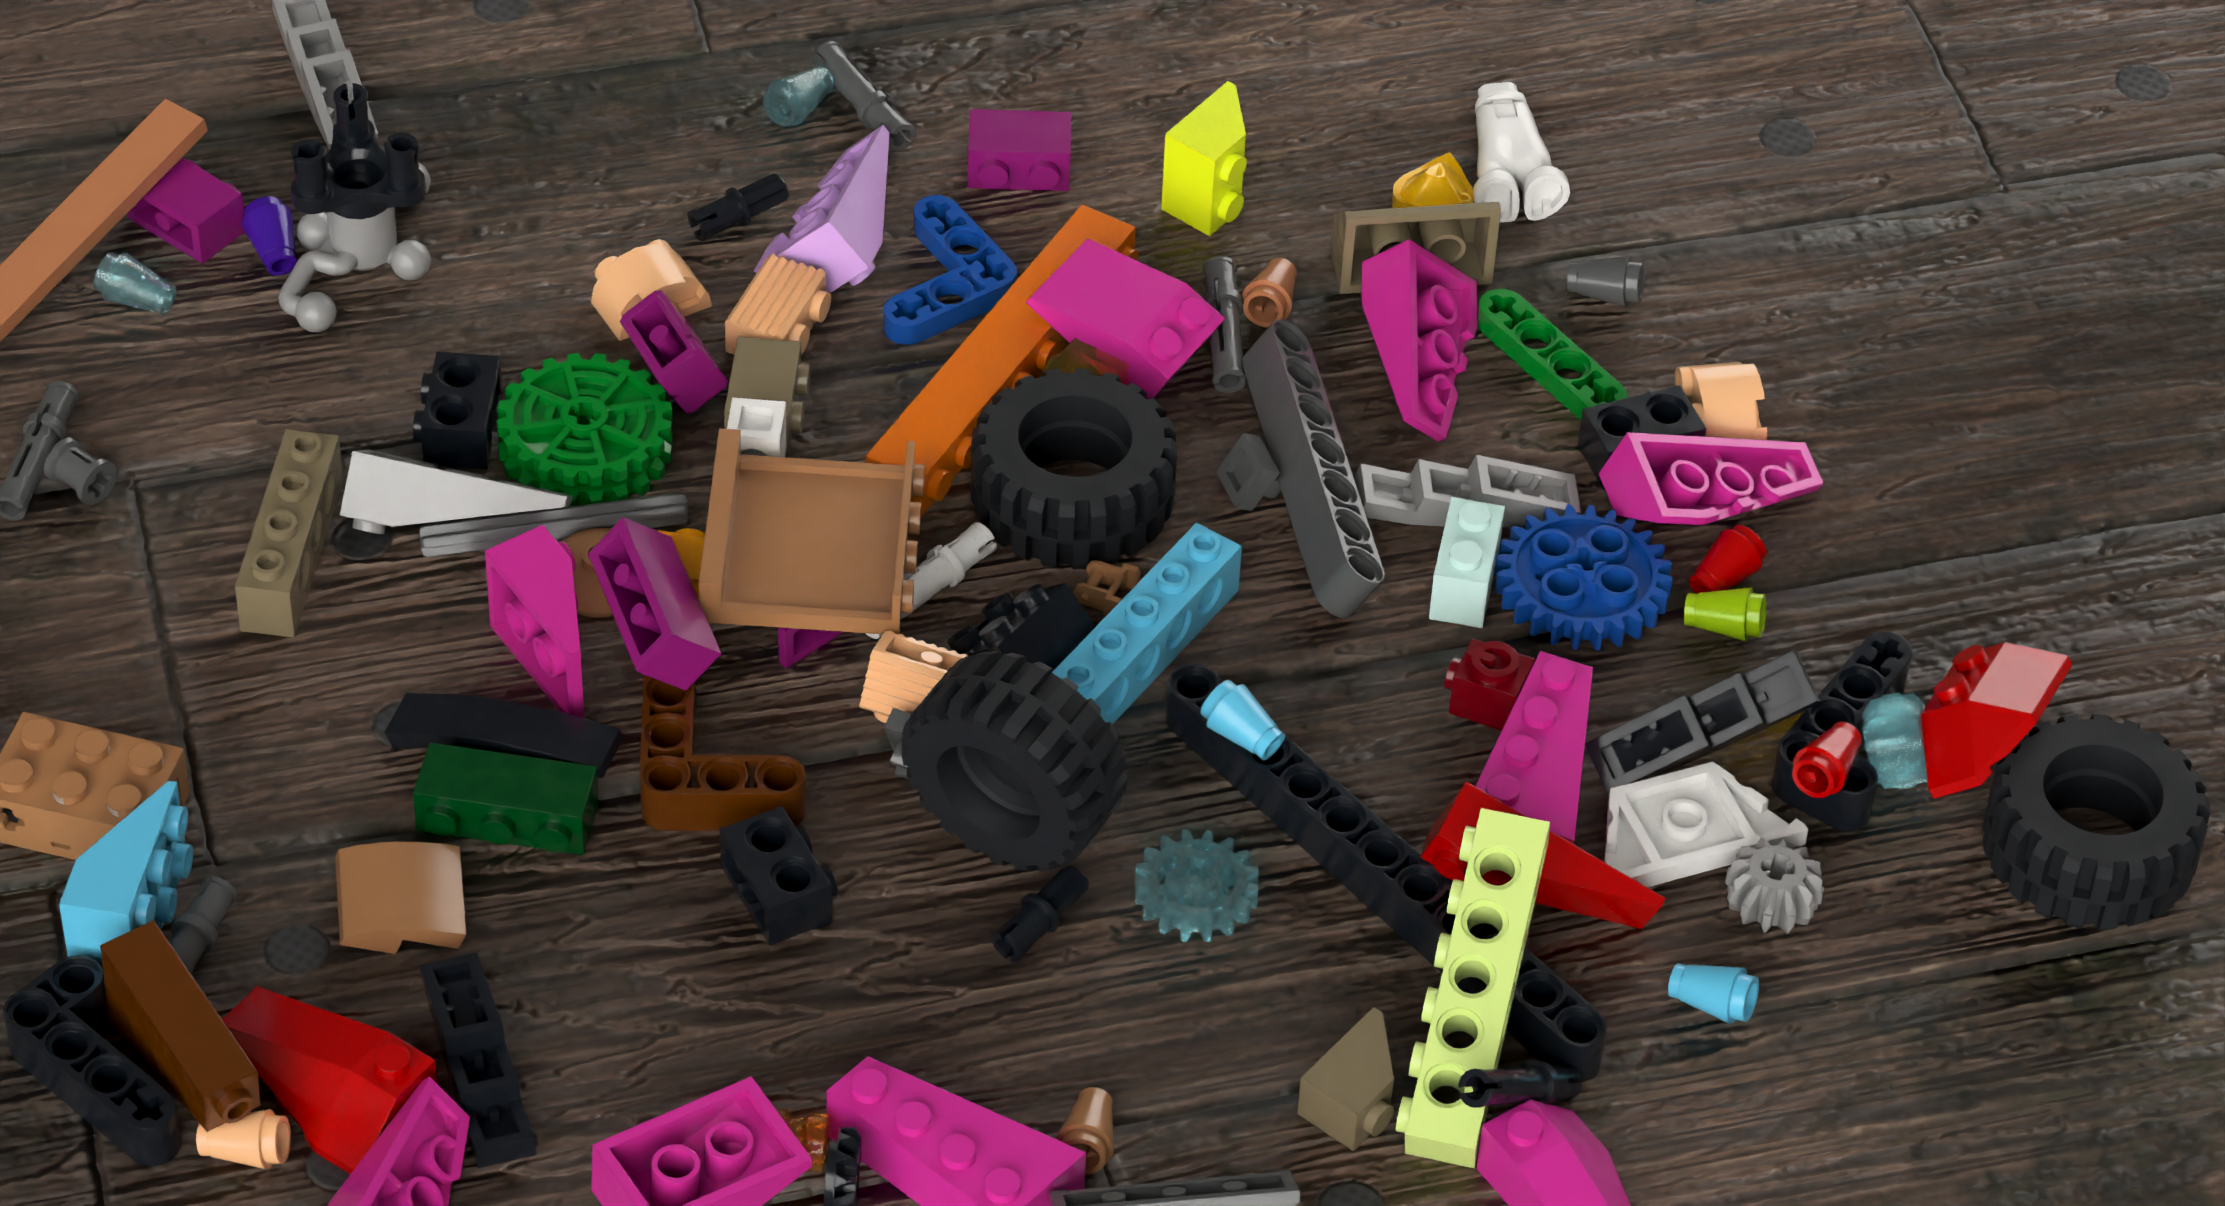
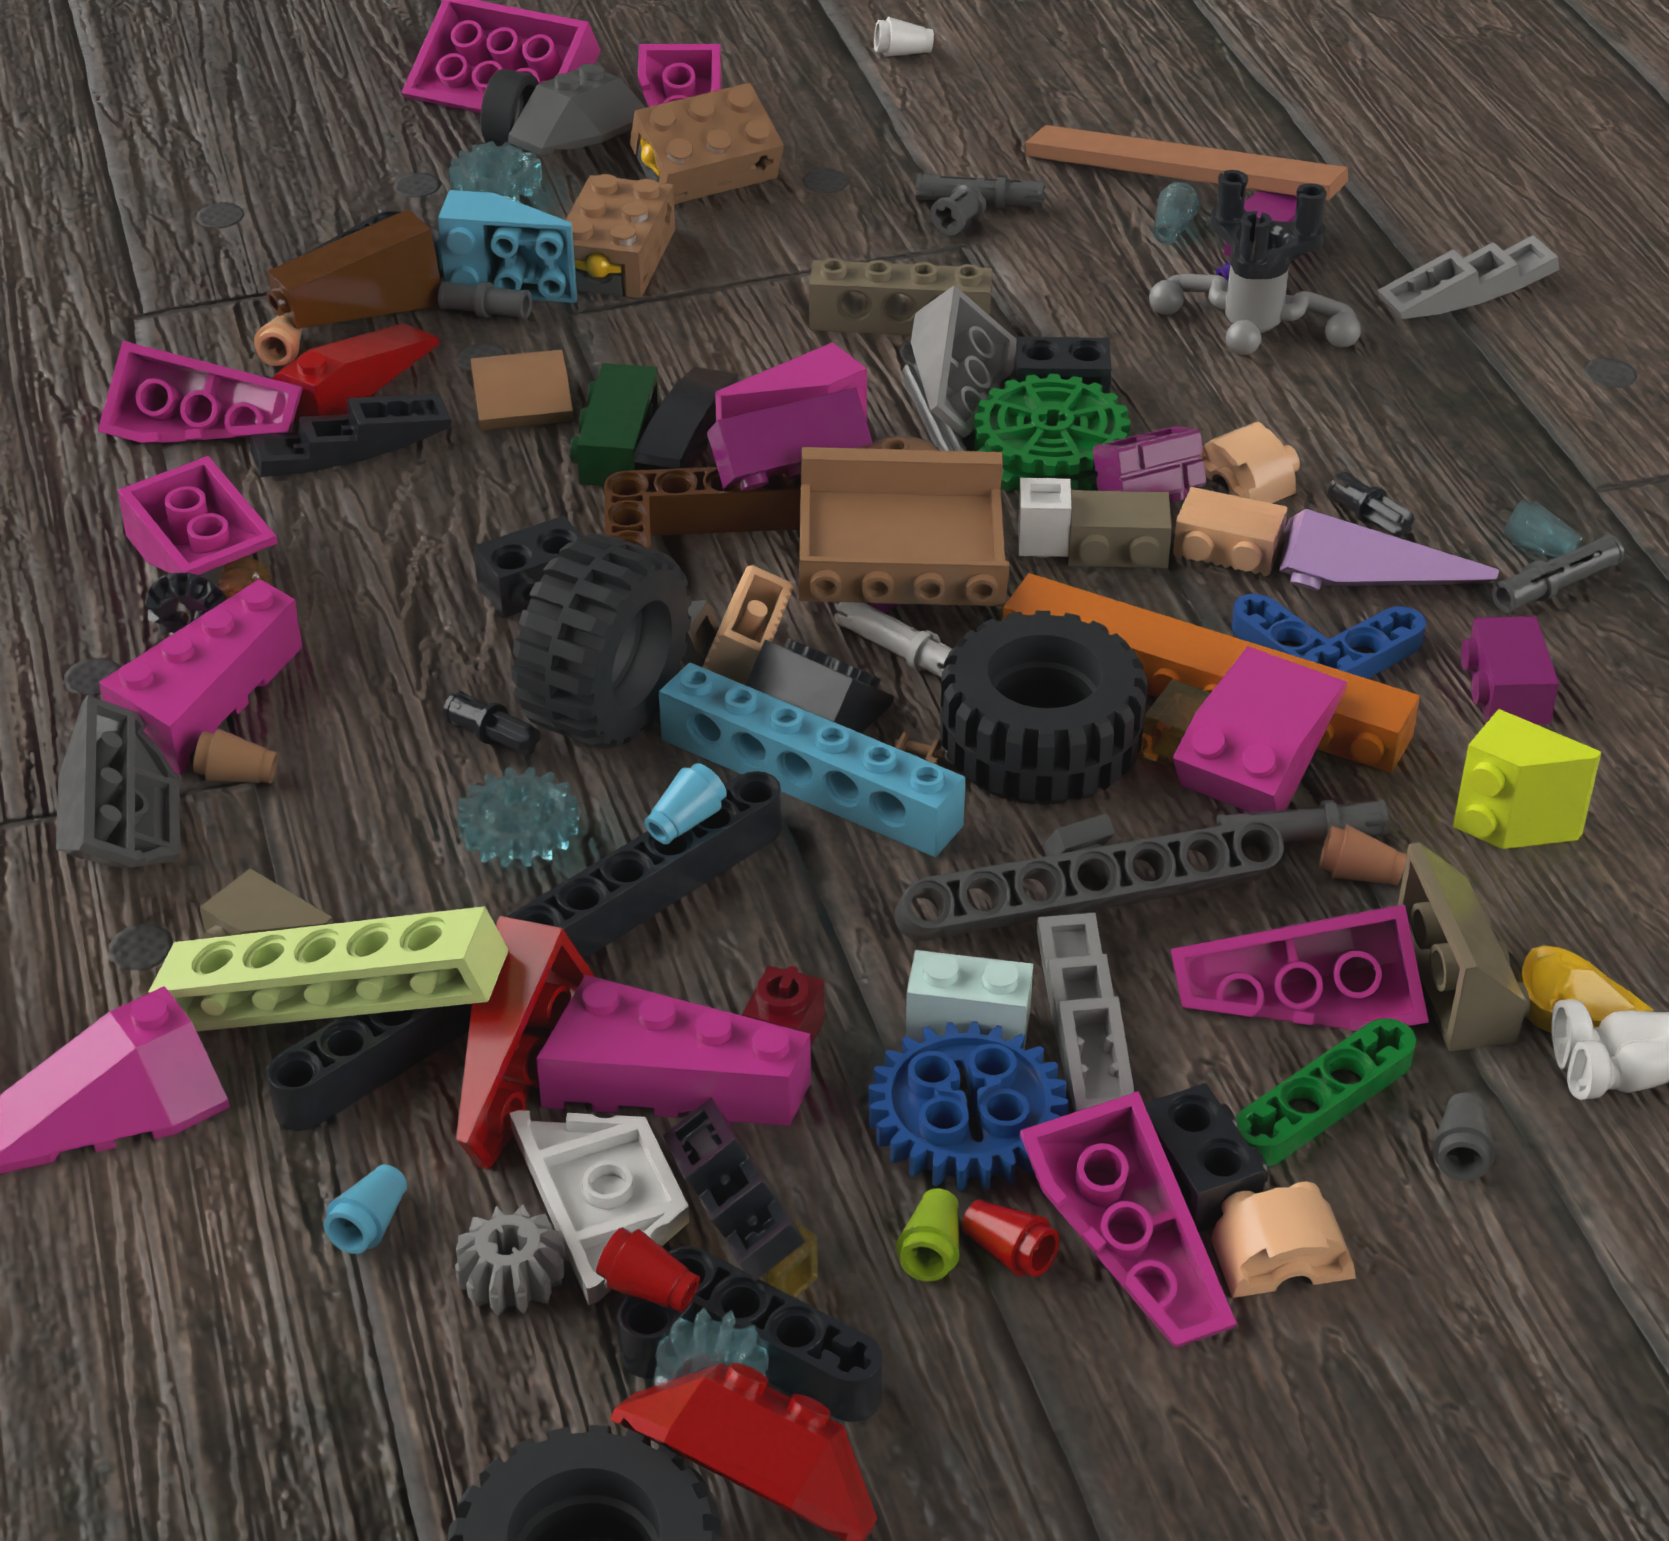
camera: 90 degrees right, 5 degrees down
(1517, 1085) = (210, 1014): black pin -> none

